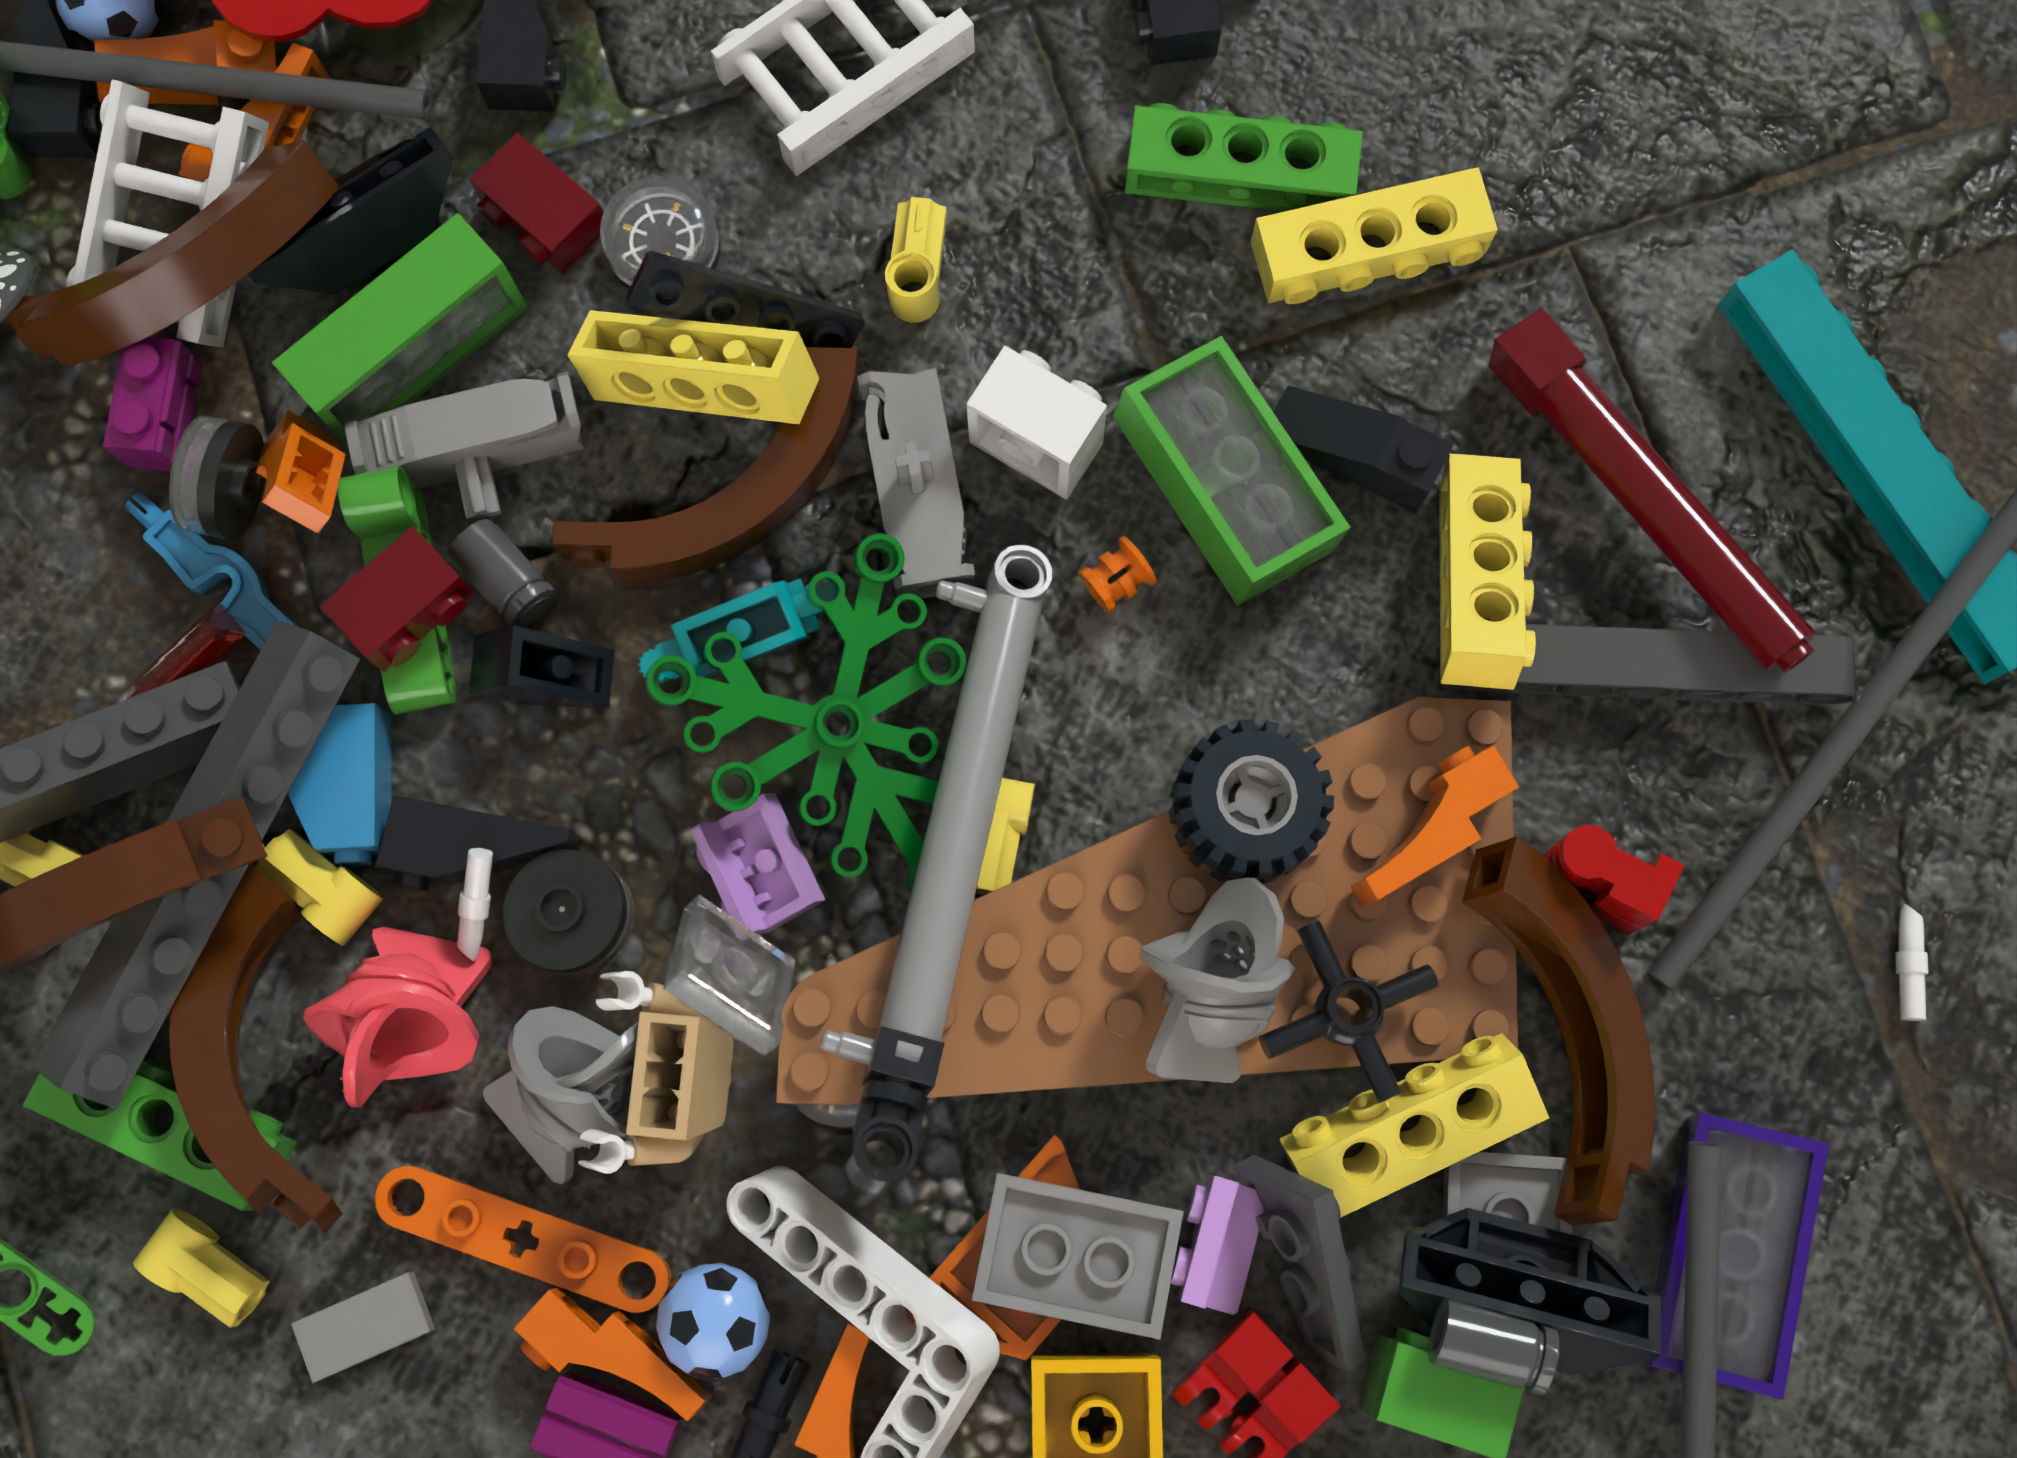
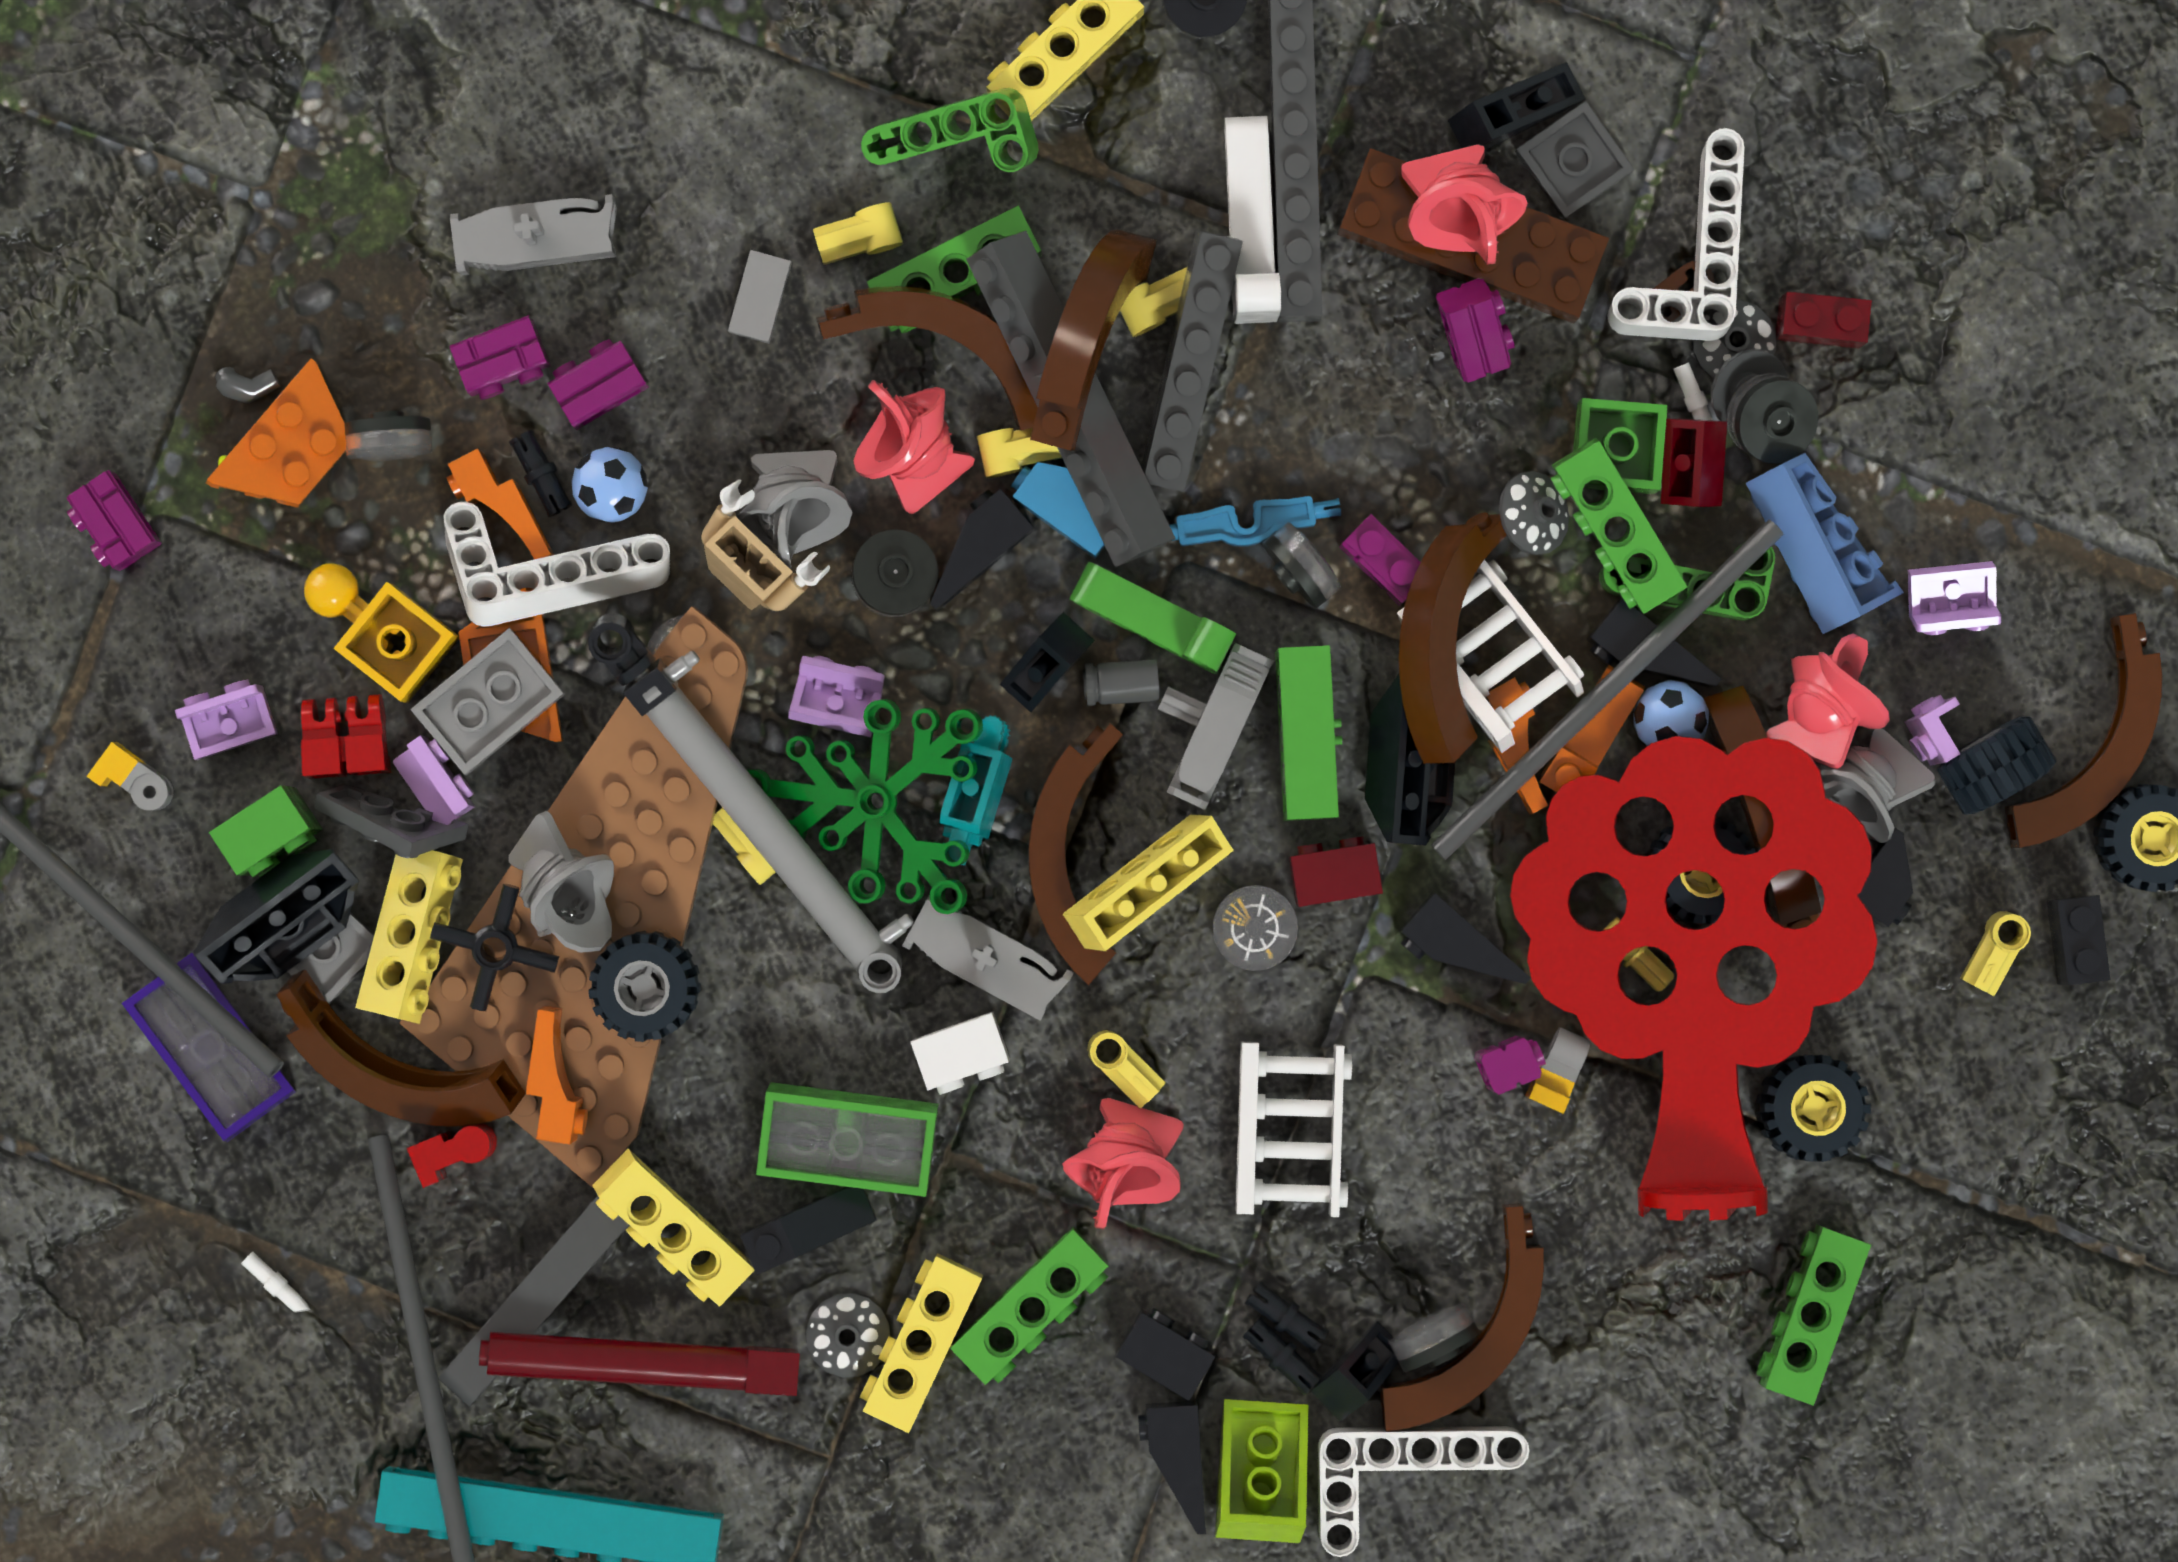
camera: 125 degrees right, 10 degrees up
(193, 651) = (1217, 468): clear red slope -> none
(301, 471) = (1258, 618): orange slope -> none
(398, 600) = (1138, 613): dark red brick -> none
(474, 901) = (938, 527): white piece -> none
(480, 1226) = (712, 434): orange piece -> none
(565, 1334) = (666, 401): orange slope -> none
(714, 296) = (1164, 941): black bracket -> none
(730, 975) = (779, 634): clear plate -> none
(1011, 174) = (1127, 1159): none -> coral helmet
(1109, 564) = (841, 1027): orange bush -> none
(1424, 347) = (852, 1313): none -> dark grey dish
(1493, 1346) = (267, 873): dark grey piece -> none

